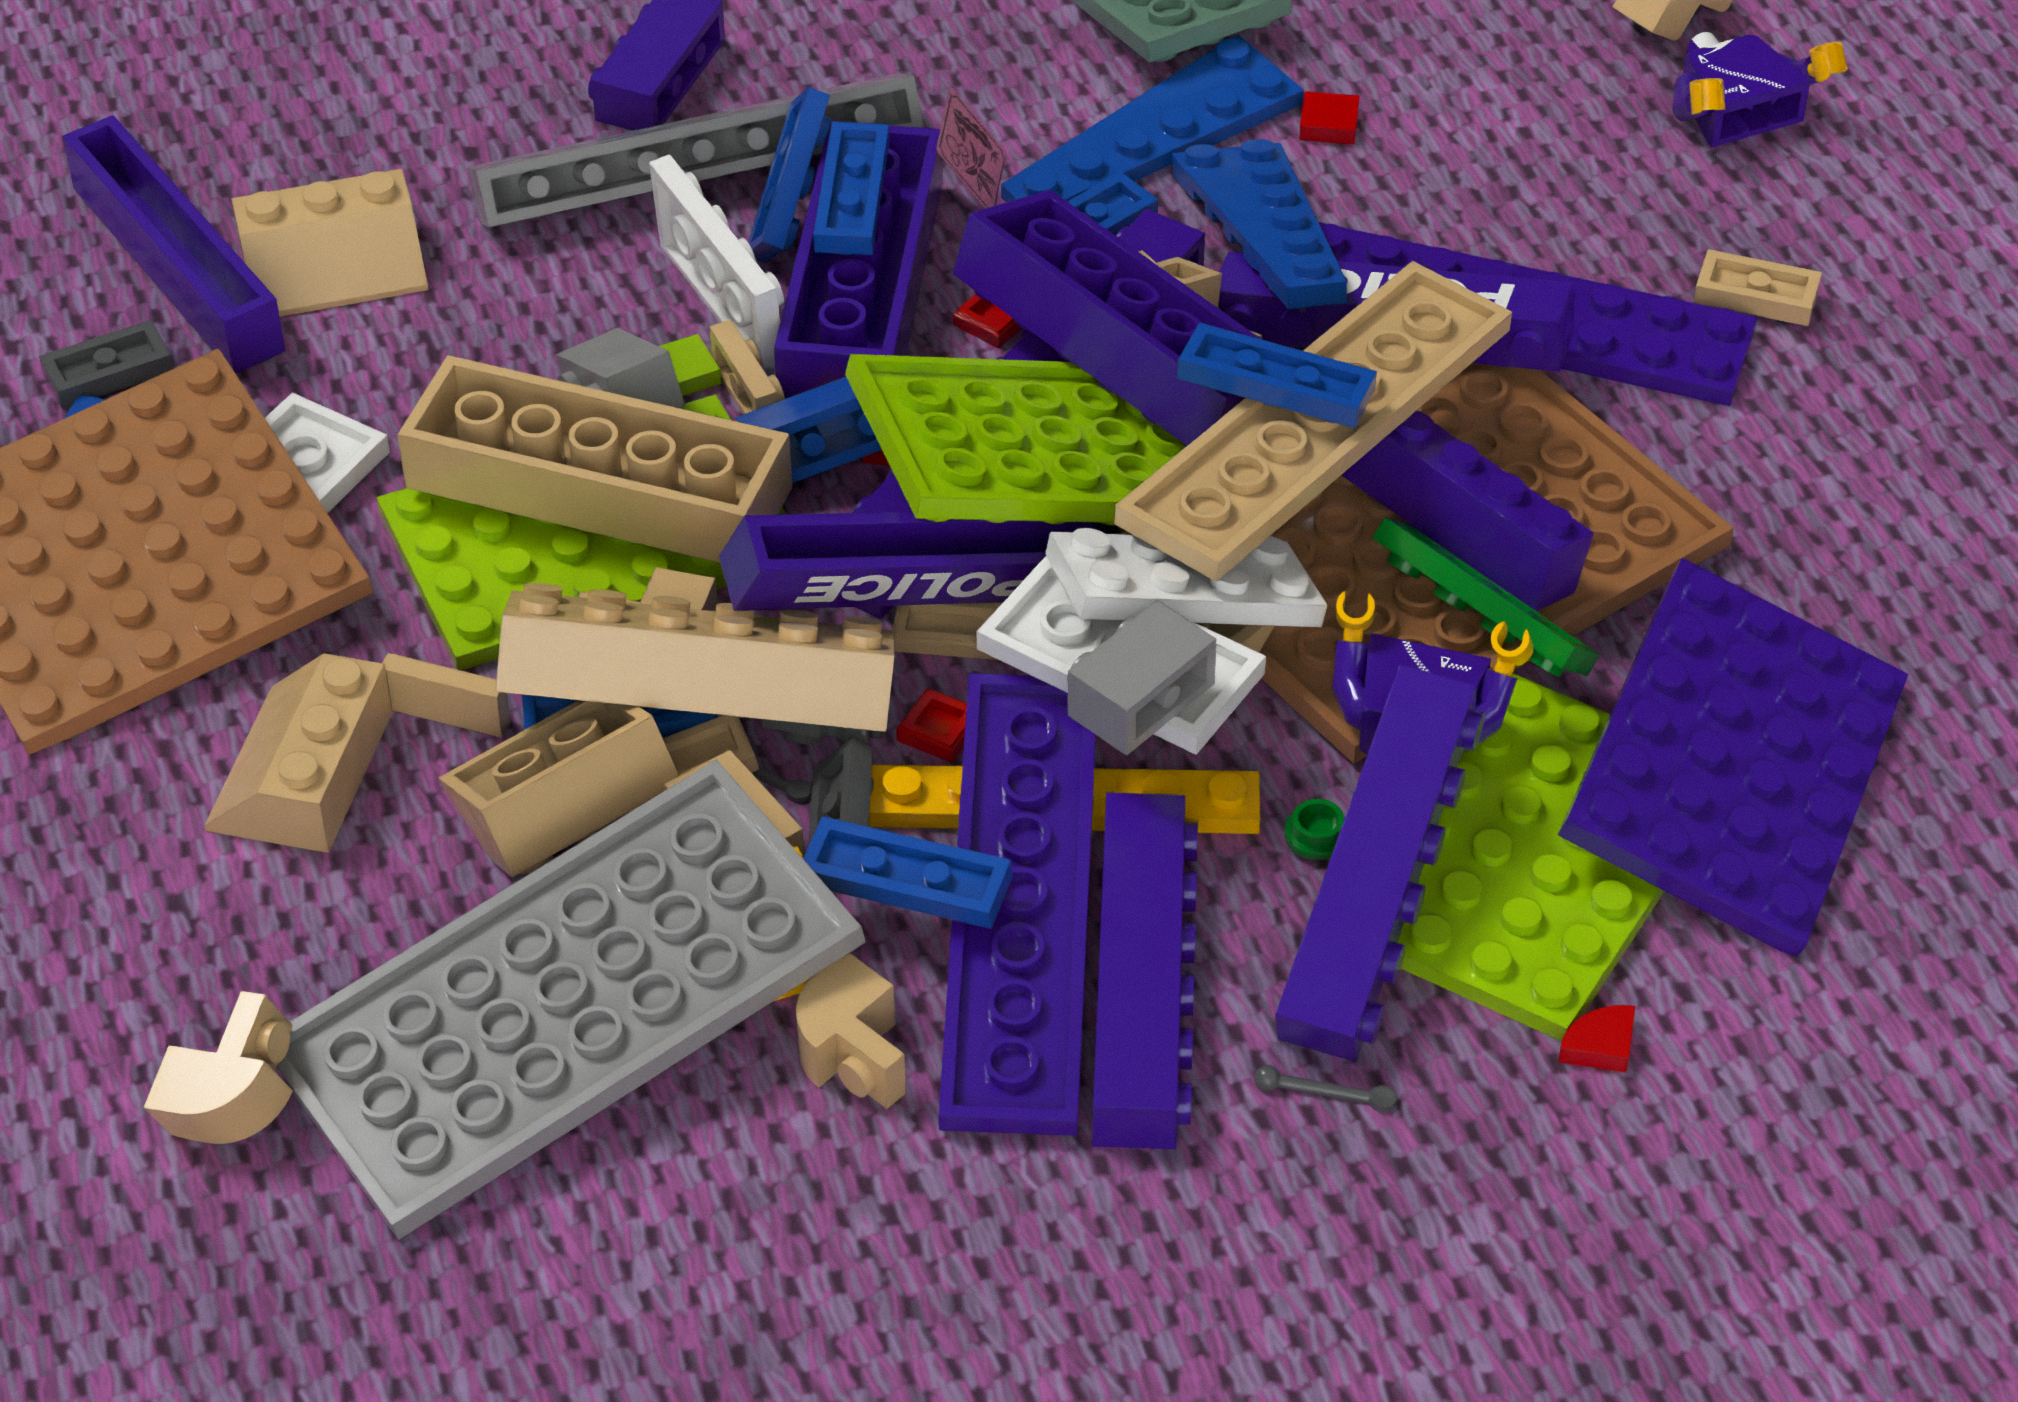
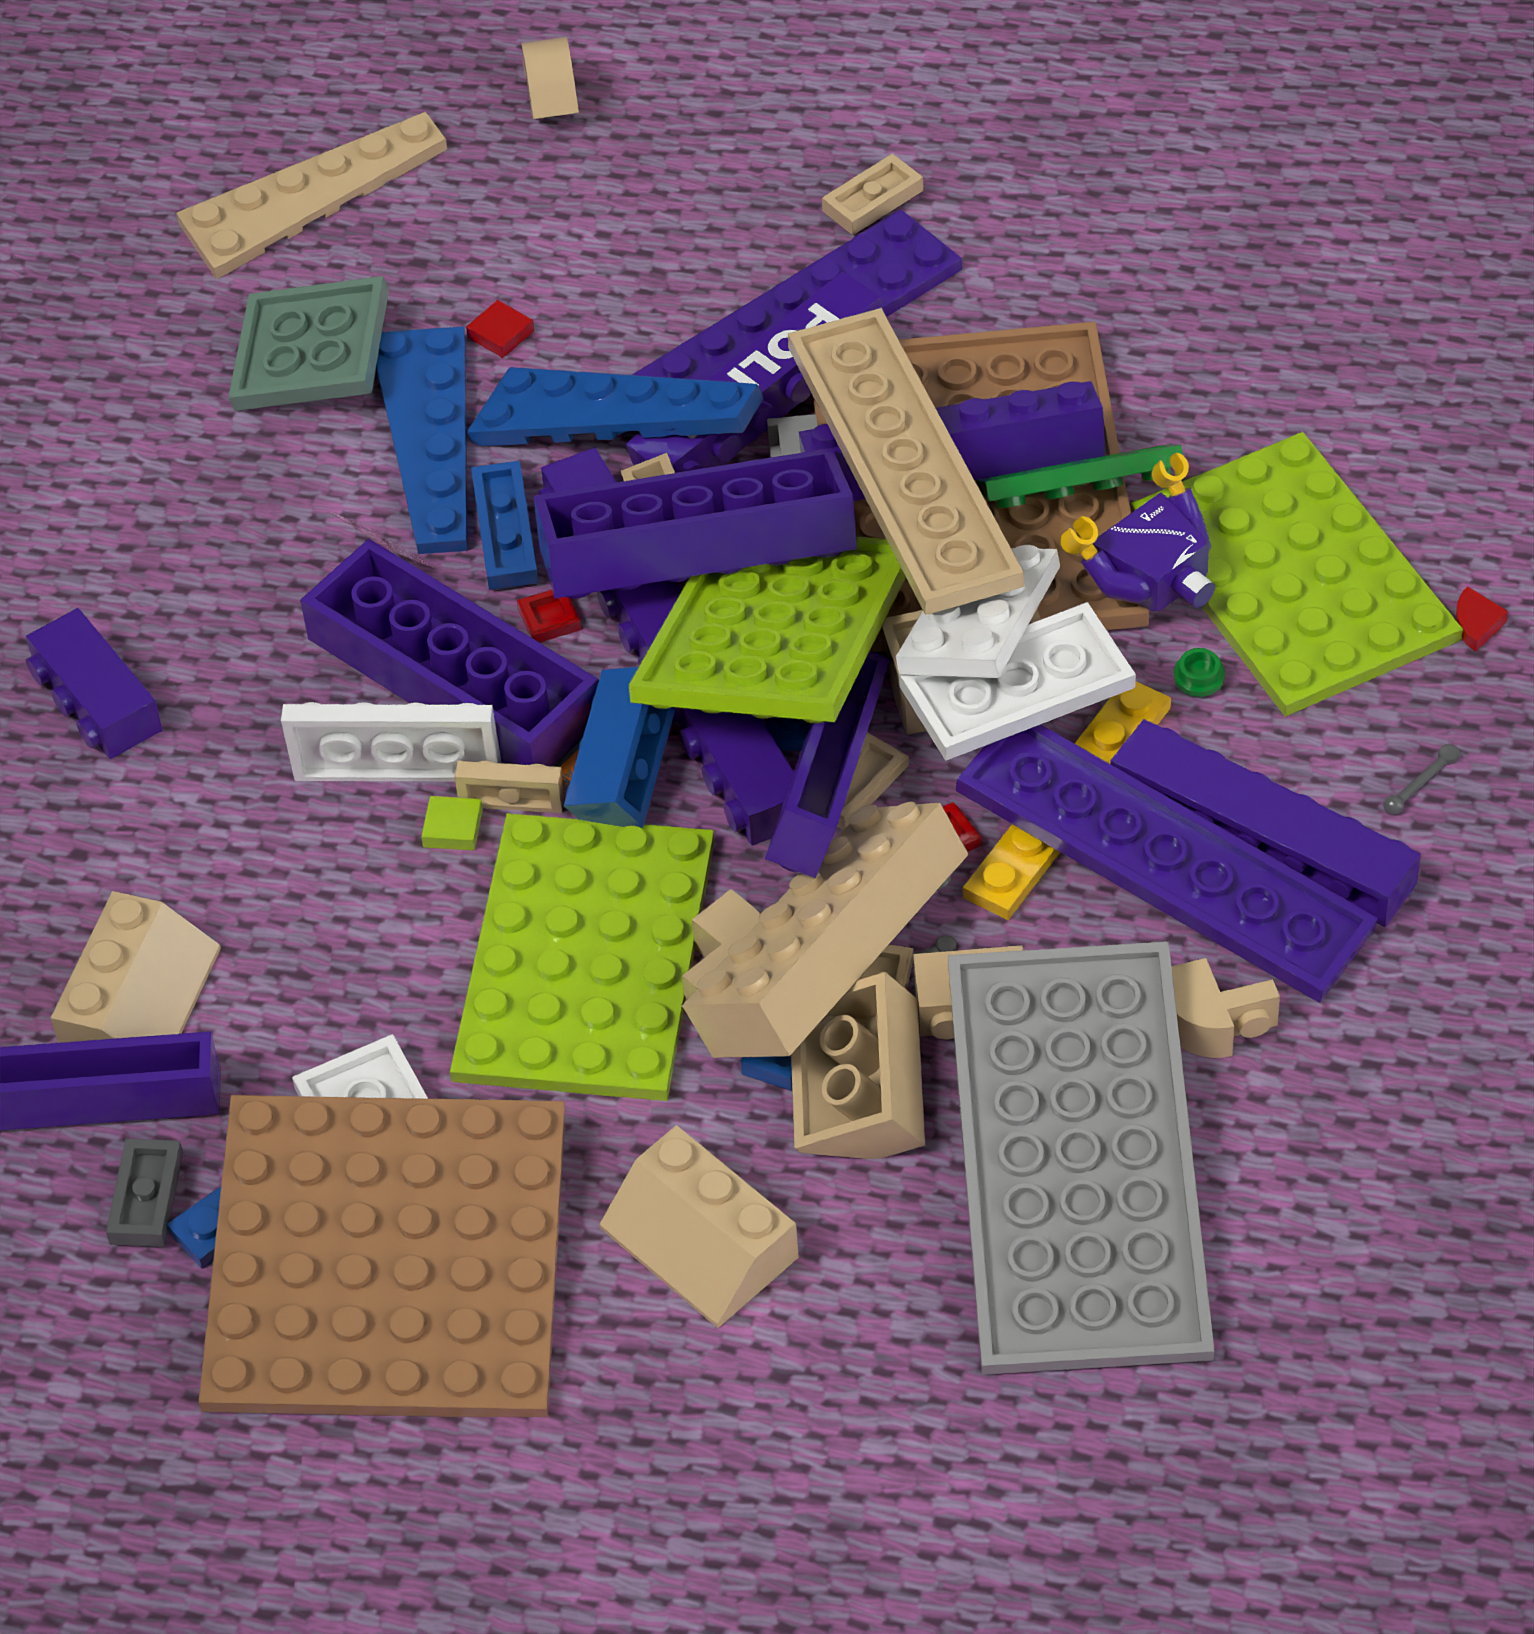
camera: 55 degrees left, 5 degrees up
(229, 1091) = (1031, 1402): tan brick -> none
(446, 695) = (713, 1104): tan tile -> none
(591, 458) = (565, 903): tan brick -> none
(622, 366) = (463, 858): light grey brick -> none
(702, 145) = (229, 708): light grey brick -> none
(789, 175) = (325, 648): blue plate -> none
(843, 785) = (992, 917): dark grey plate -> none
(851, 188) = (408, 615): blue plate -> none
(909, 872) = (1122, 896): blue plate -> none
(1141, 677) = (1077, 671): light grey brick -> none
(1277, 375) = (871, 452): blue plate -> none
(1378, 864) = (1291, 642): dark purple brick -> none
(1735, 758) = (1303, 424): dark purple plate -> none
(1747, 86) = (676, 93): dark purple torso -> none

